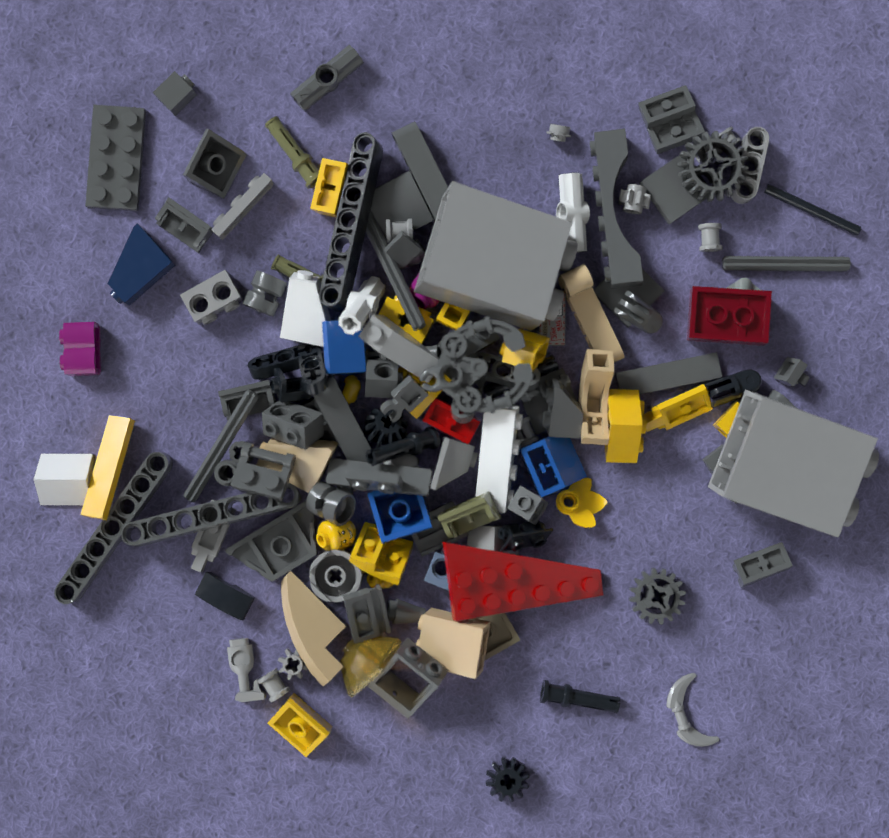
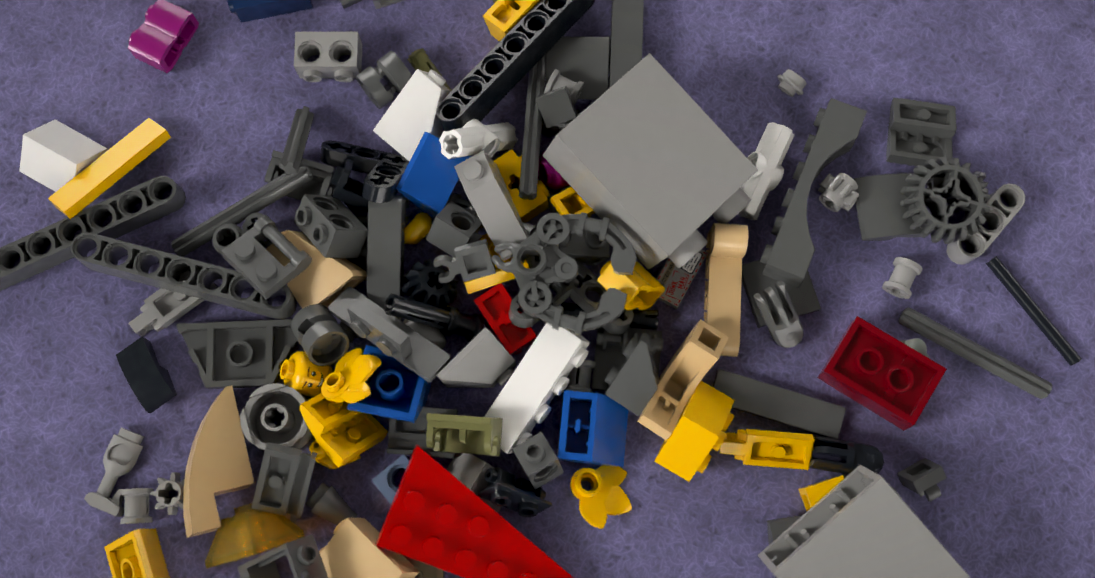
camera: 30 degrees right, 10 degrees down
(230, 375) = (296, 141): none -> dark grey axle
(371, 521) = (350, 377): none -> yellow plate

